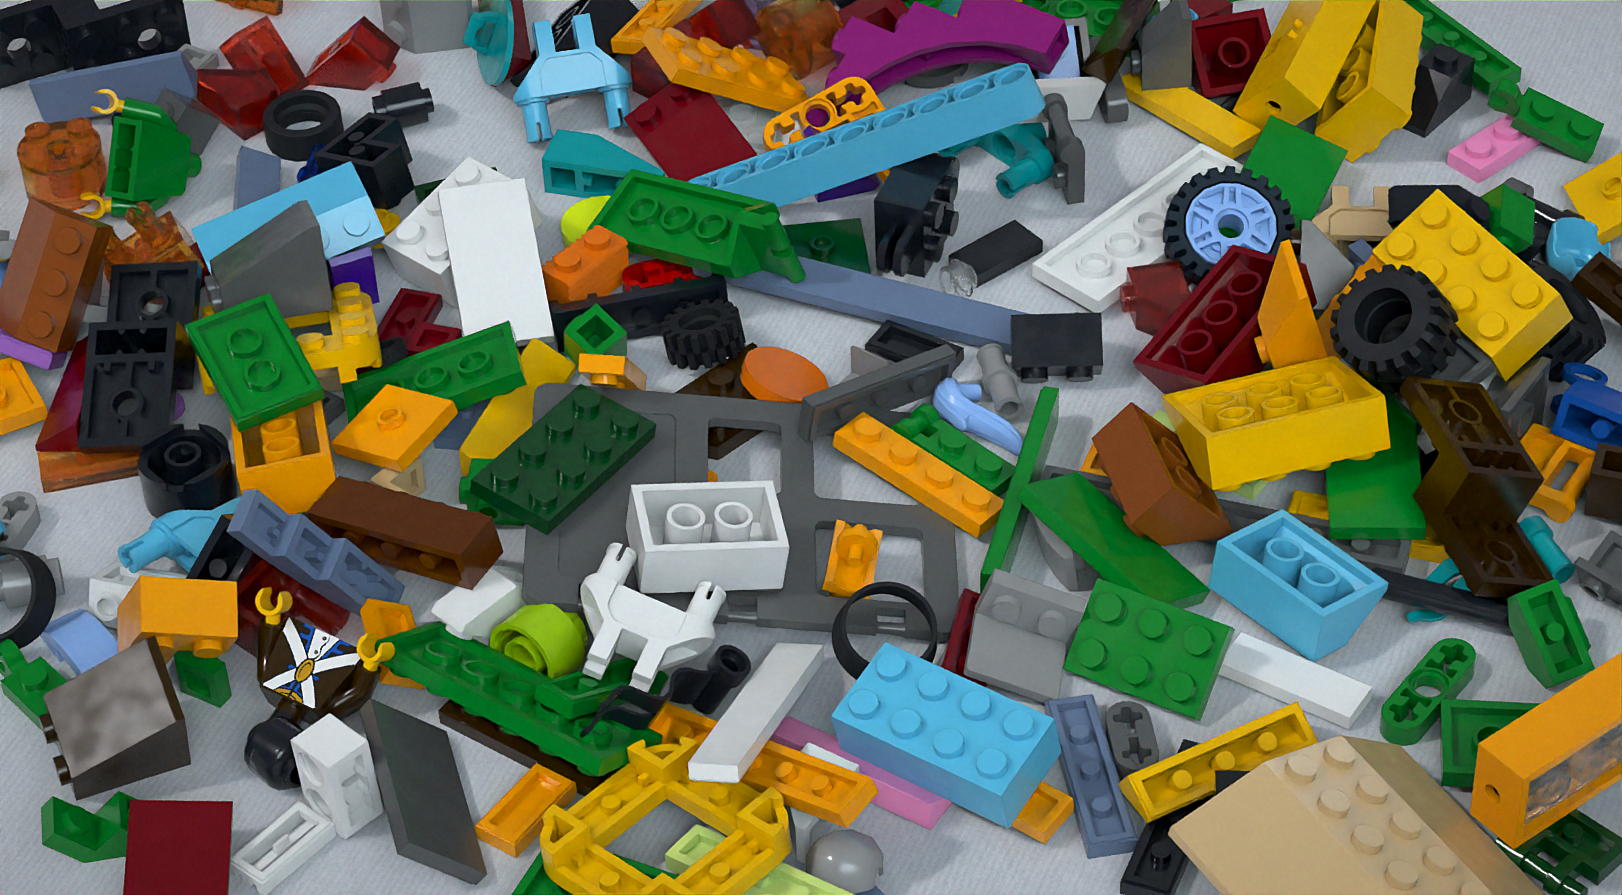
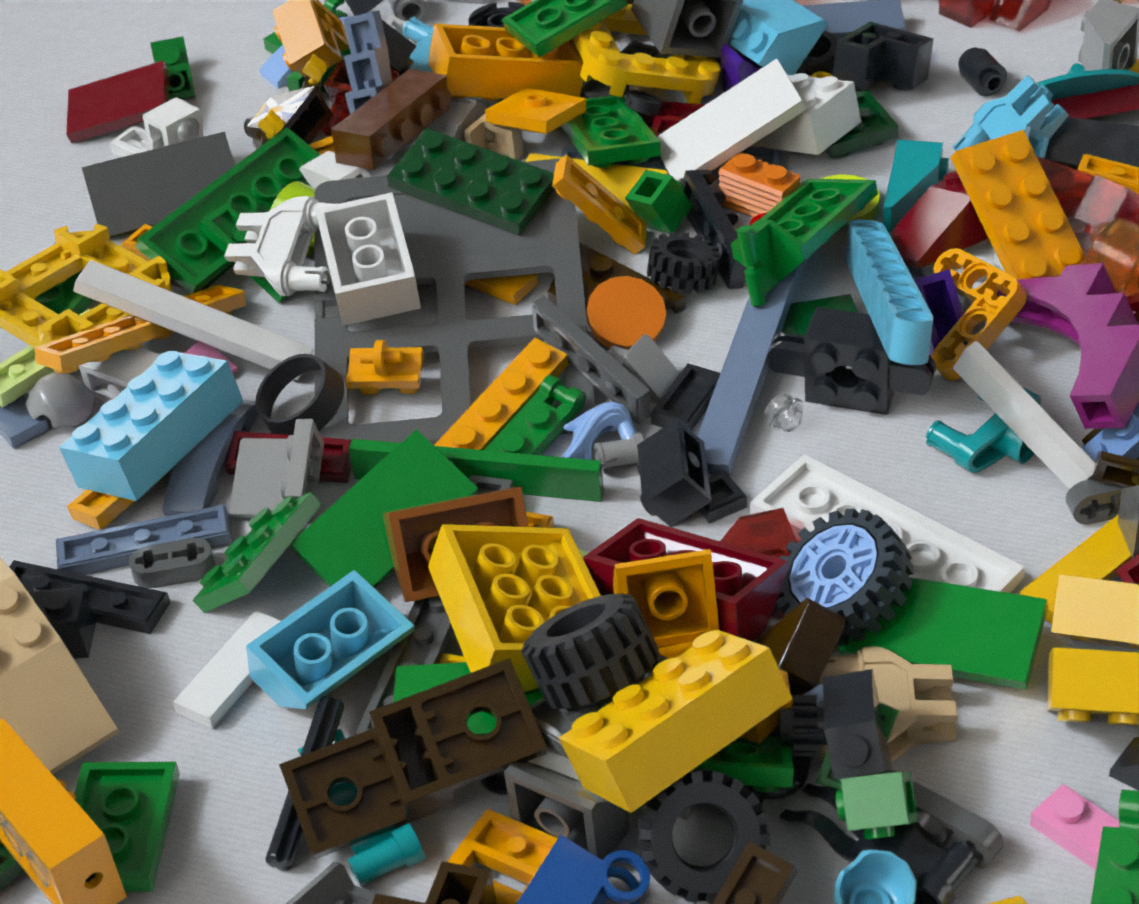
camera: 90 degrees right, 0 degrees up
(116, 723) = (247, 53): slope -> none
(271, 753) = (225, 117): black head -> none
(296, 108) = (950, 16): black tyre -> none
(355, 59) = (1040, 36): clear red slope -> none
(685, 686) = (249, 302): black flag -> none
(999, 251) = (836, 439): black tile -> none
(1065, 149) = (979, 468): dark grey plate -> none
(1191, 773) = (125, 610): yellow slope -> none
(1426, 709) = (216, 779): green beam -> none
(1549, 634) = (249, 852): green slope -> none

